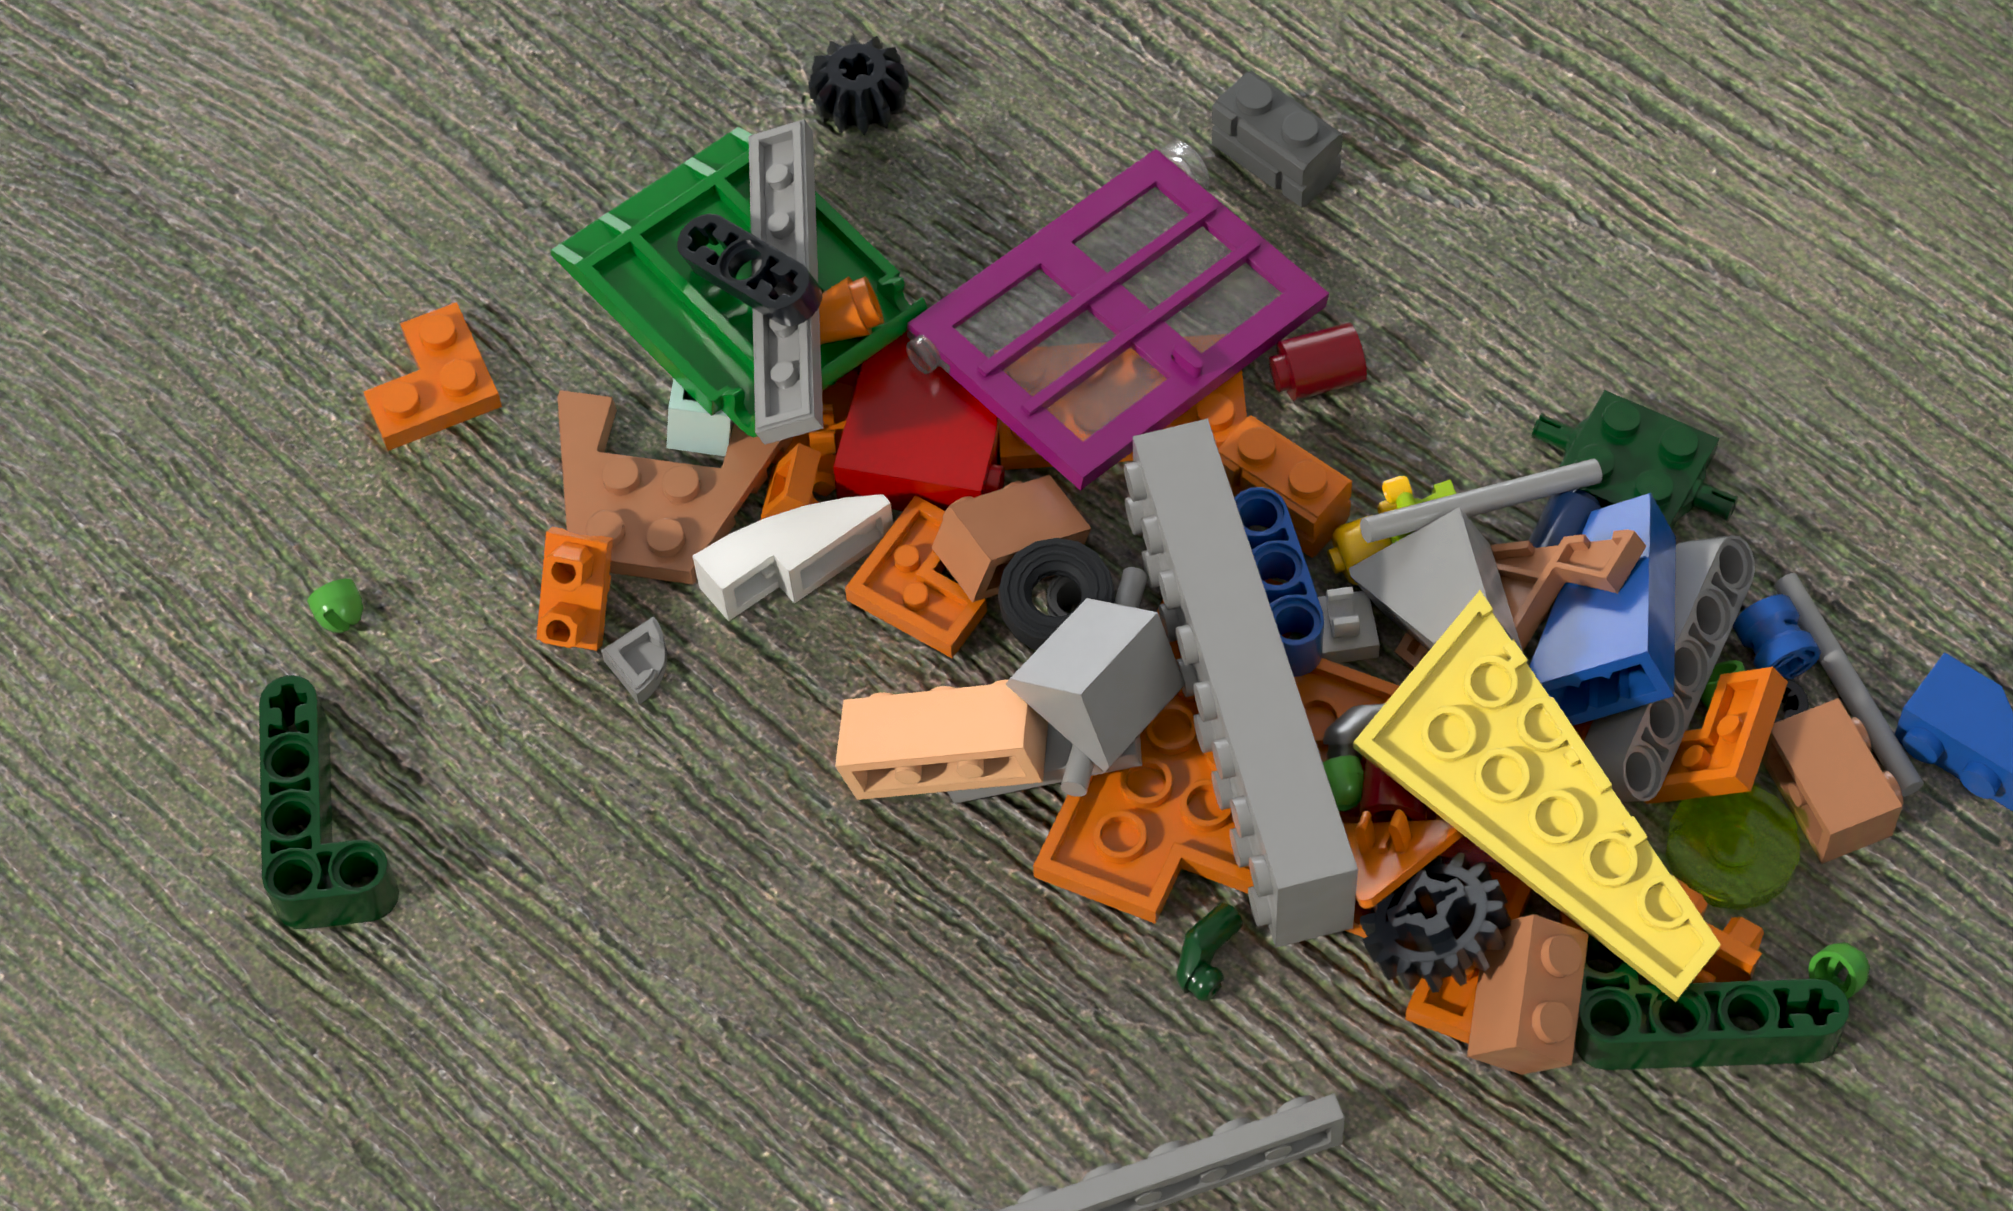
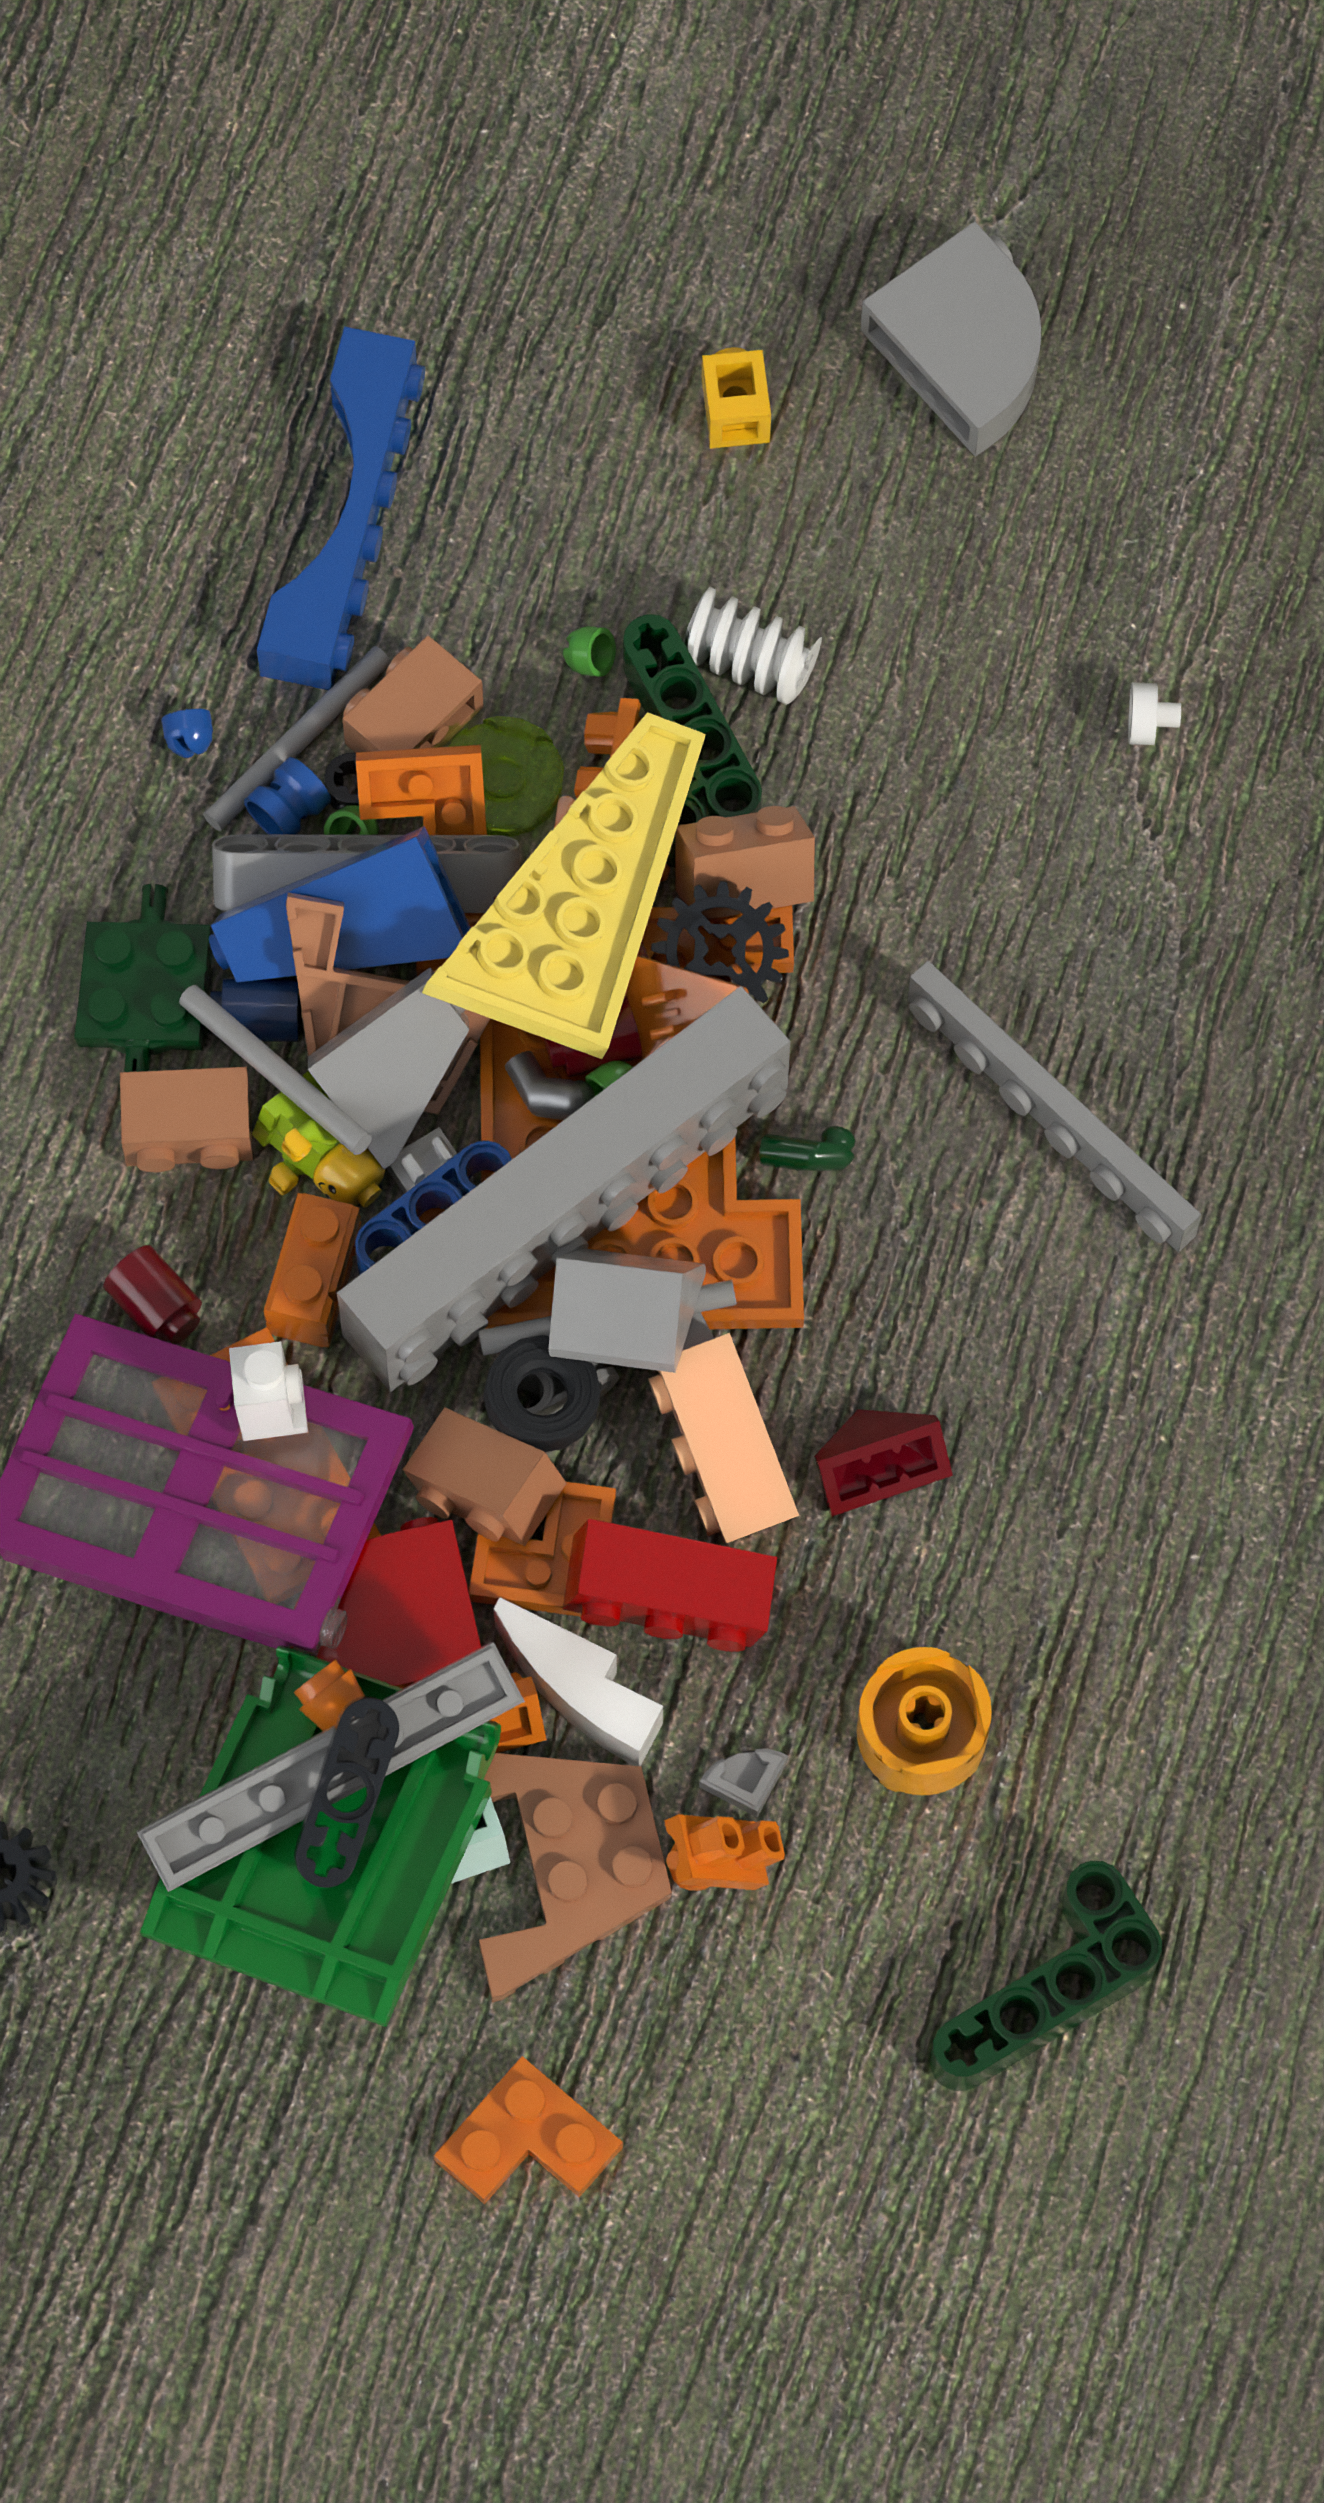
camera: 120 degrees left, 10 degrees up
(336, 605) = (824, 2086): bright green hinge -> none
(594, 799) = (949, 1696): none -> light orange brick
(831, 642) = (669, 1585): none -> red brick
(873, 881) = (881, 1457): none -> dark red slope
(1156, 362) = (267, 1392): none -> white brick
(1482, 434) = (186, 1118): none -> nougat brick
(1777, 1107) = (750, 648): none -> white piece
(1887, 588) = (188, 731): none -> blue hinge

